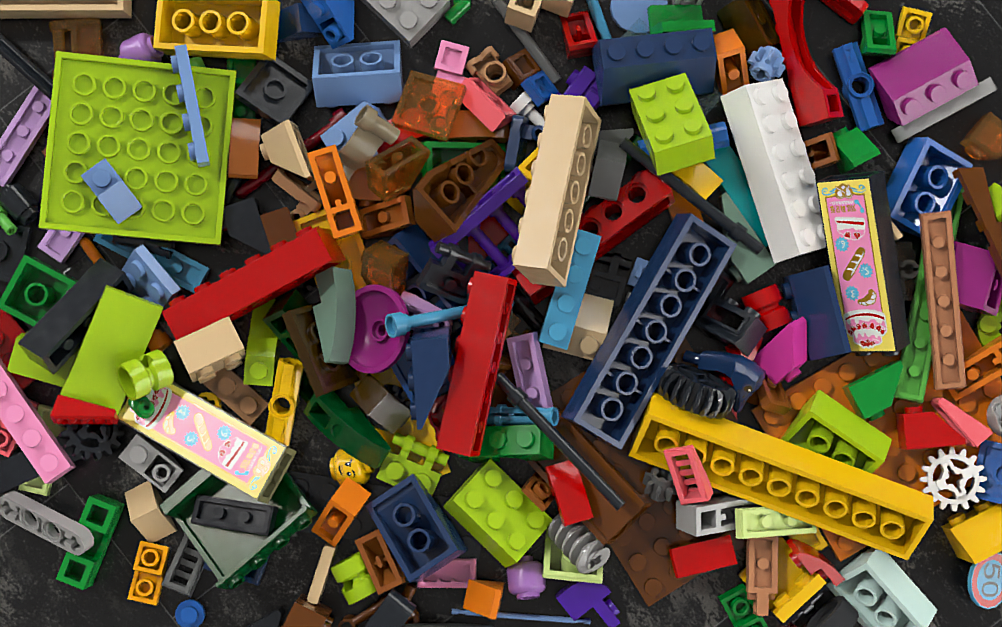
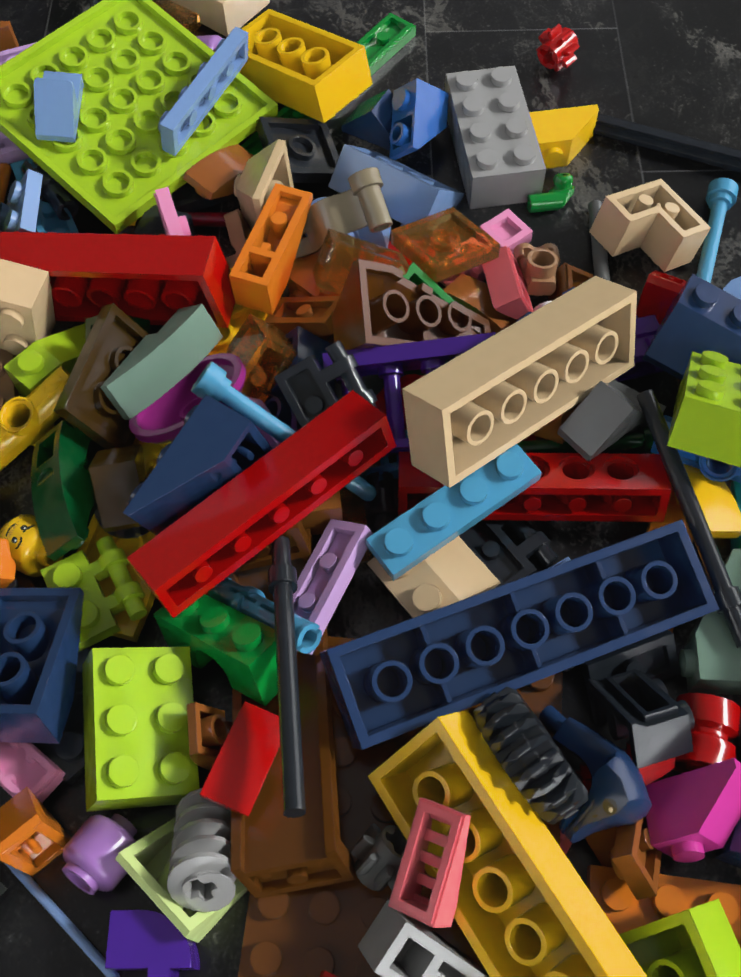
camera: 40 degrees right, 25 degrees down
(262, 221) = (171, 222): none -> bright pink plate

